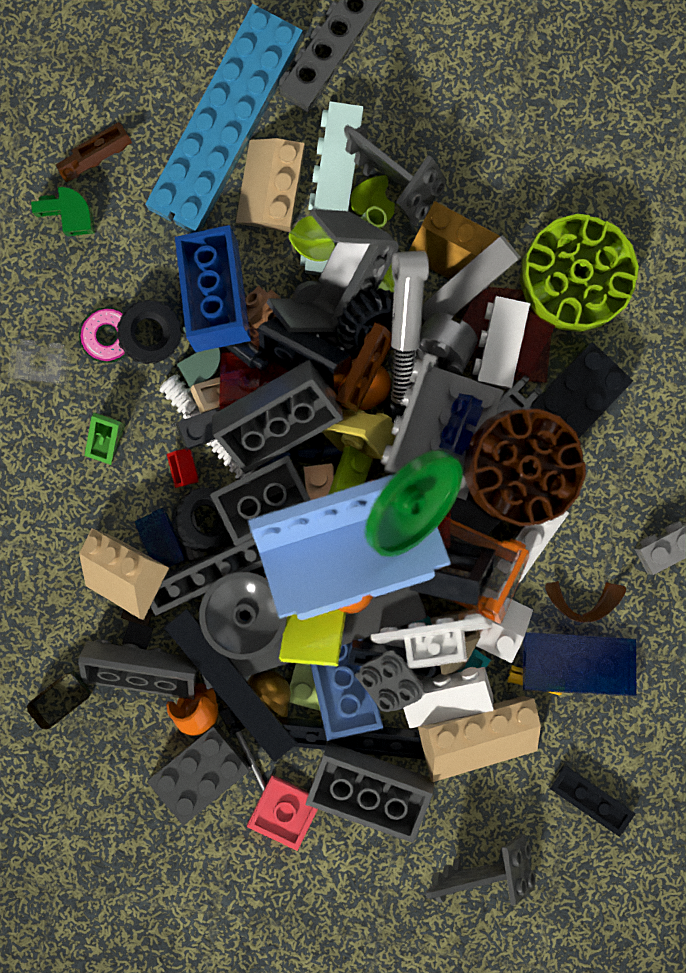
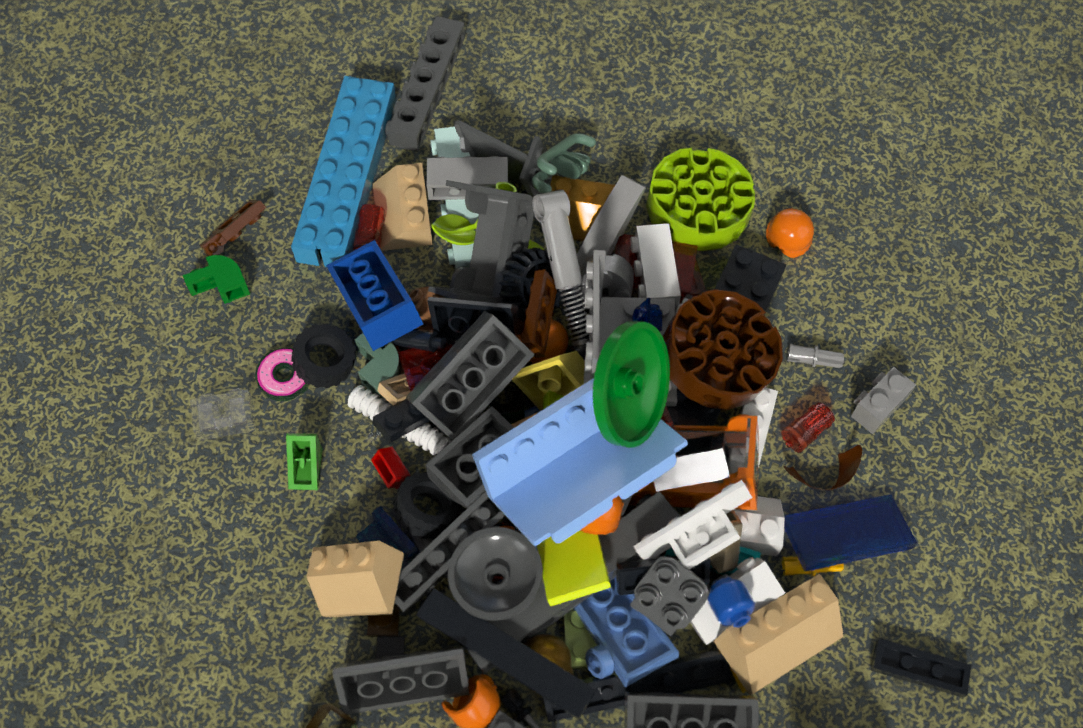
camera: 20 degrees left, 25 degrees down
(230, 202) = (369, 225): none -> clear red piece
(312, 712) = (599, 661): none -> medium blue tile
(344, 179) = (470, 170): none -> light grey brick
(439, 710) = (731, 602): none -> blue head
(449, 191) = (562, 161): none -> sand green piece
(585, 551) = (806, 428): none -> clear red piece
(625, 479) = (814, 356): none -> light grey axle
(657, 337) = (791, 232): none -> orange helmet

